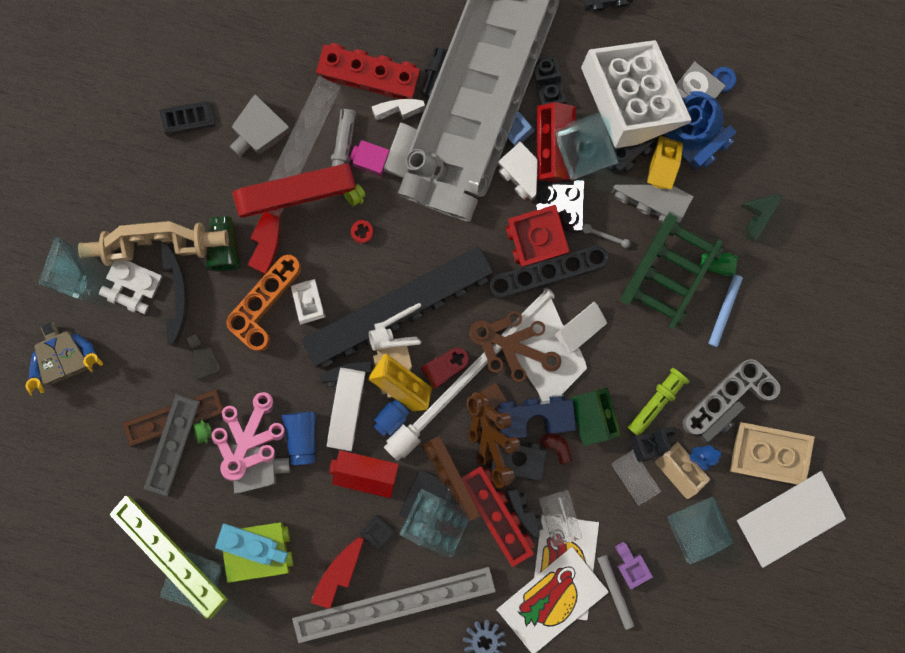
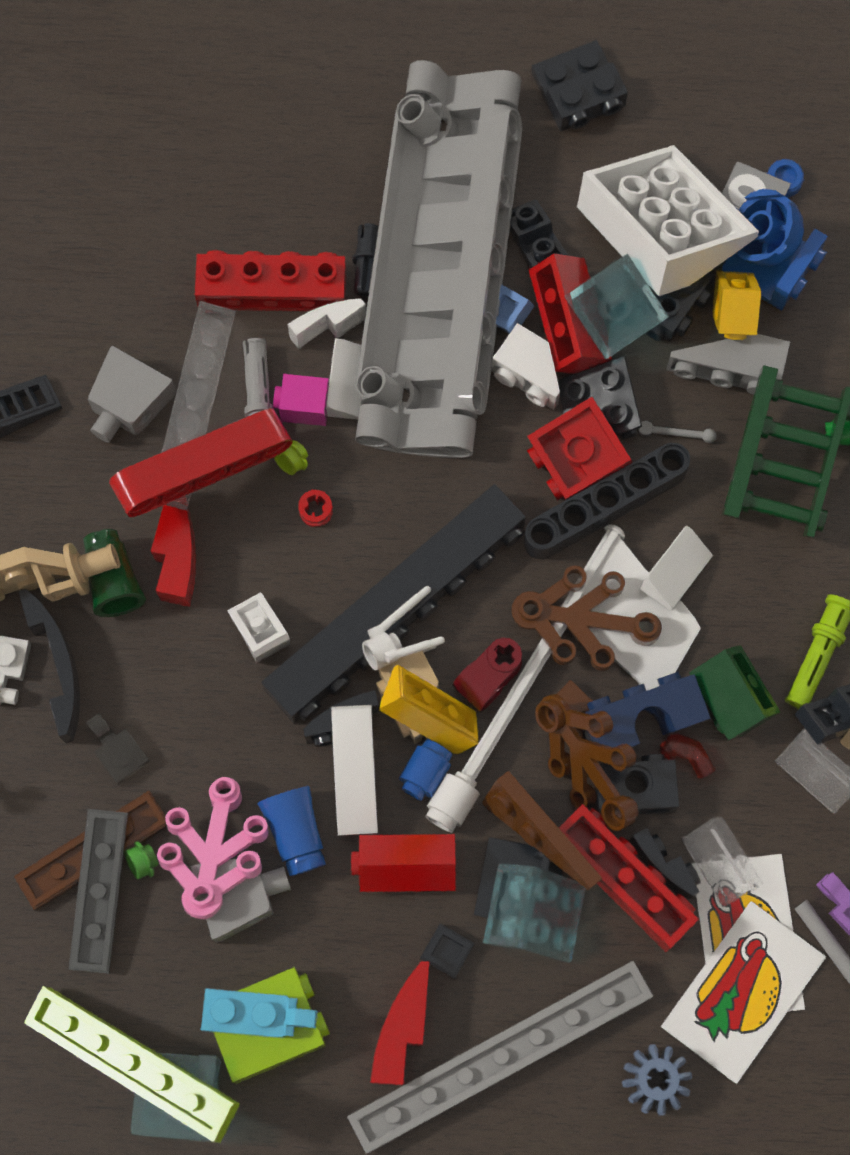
camera: 10 degrees left, 10 degrees down
(268, 299) = (198, 637): orange beam -> none

